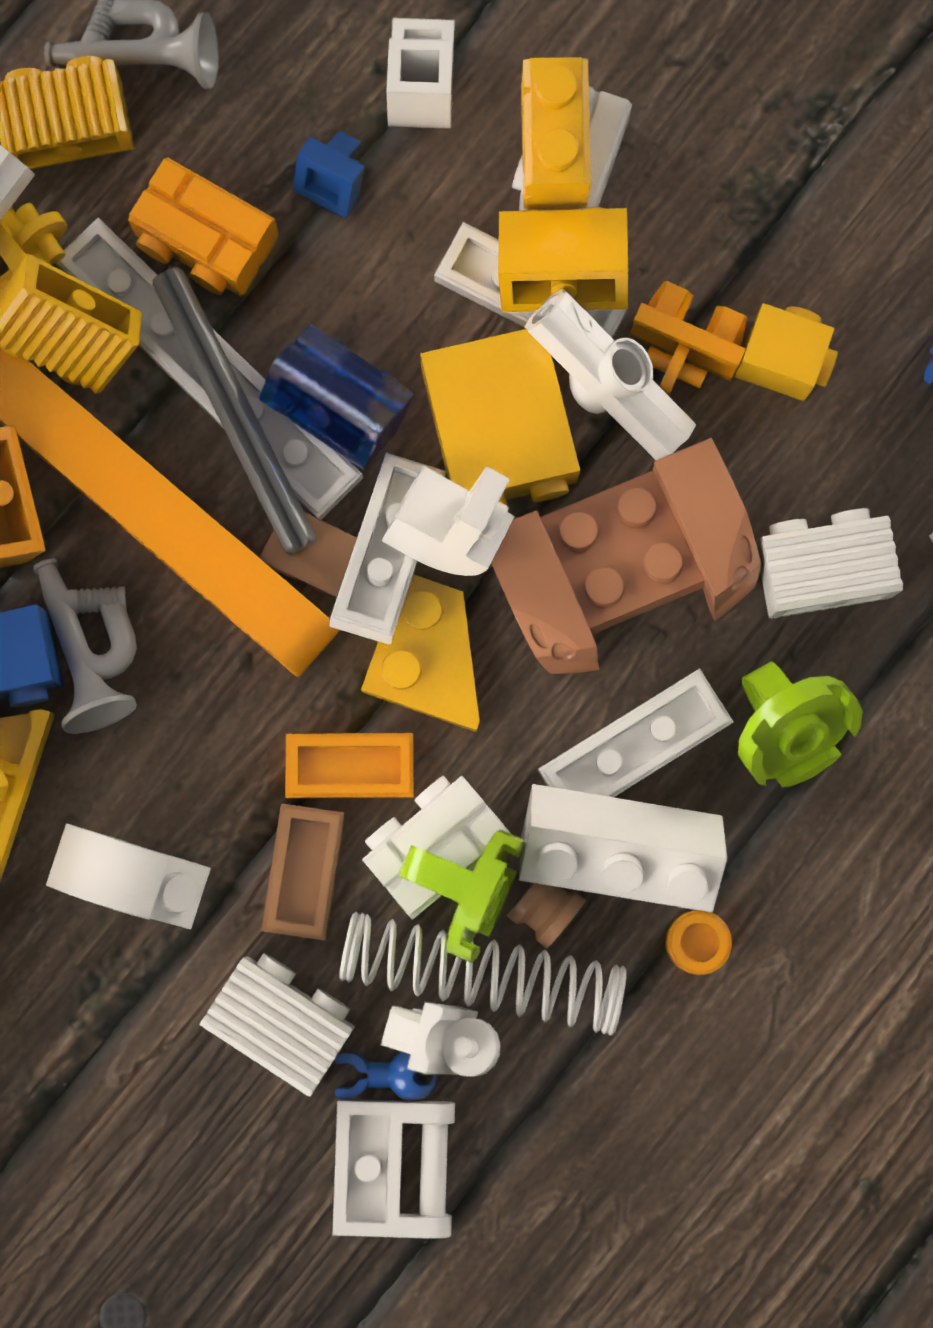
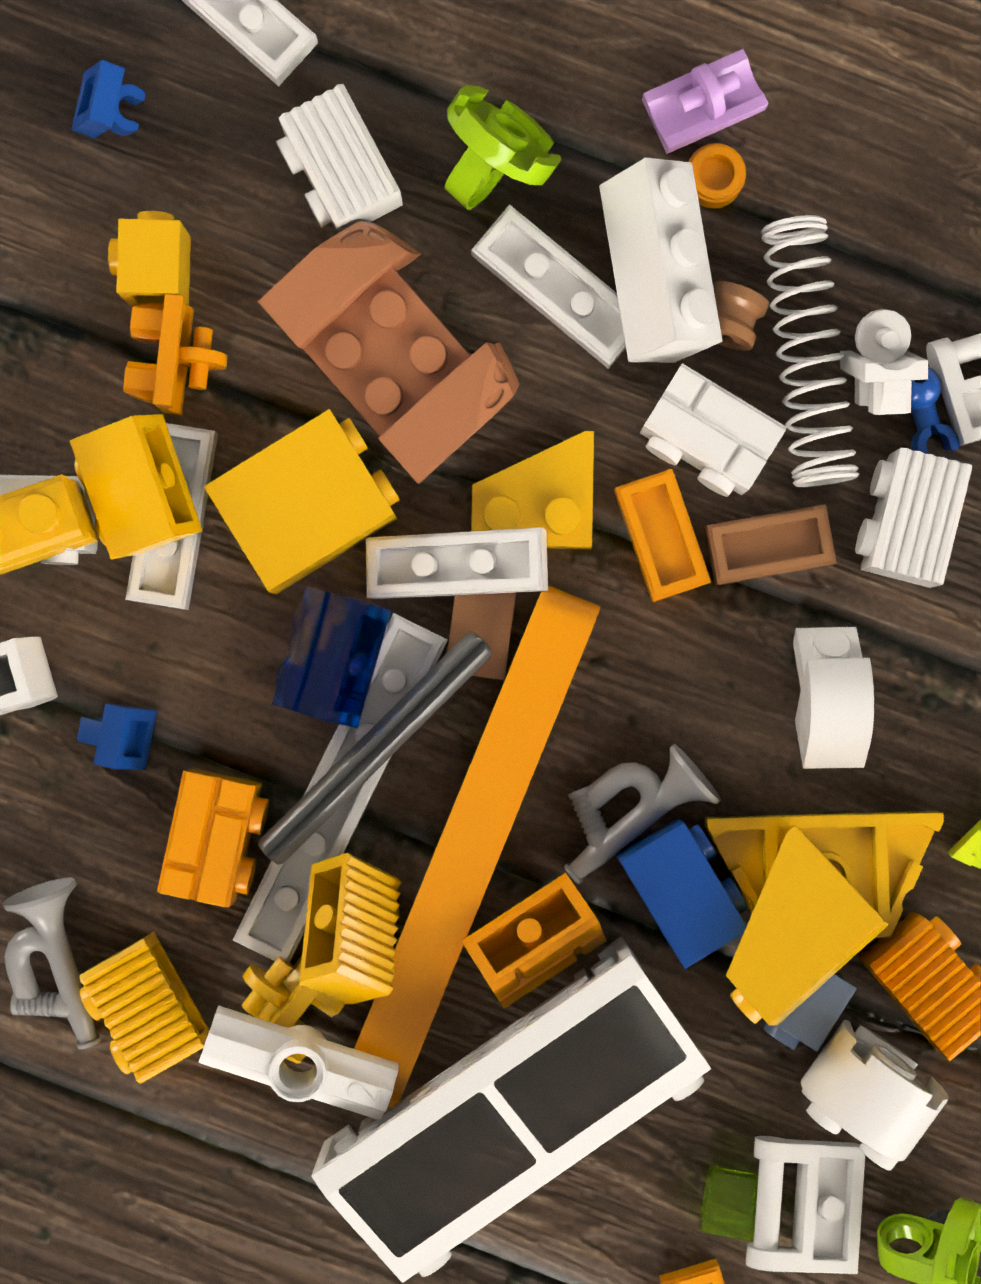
camera: 105 degrees left, 5 degrees up
(450, 525) = (421, 507): white brick -> none
(479, 891) = (749, 371): lime tile -> none
(610, 375) = (230, 410): white piece -> none
(773, 951) = (704, 101): none -> lavender hips

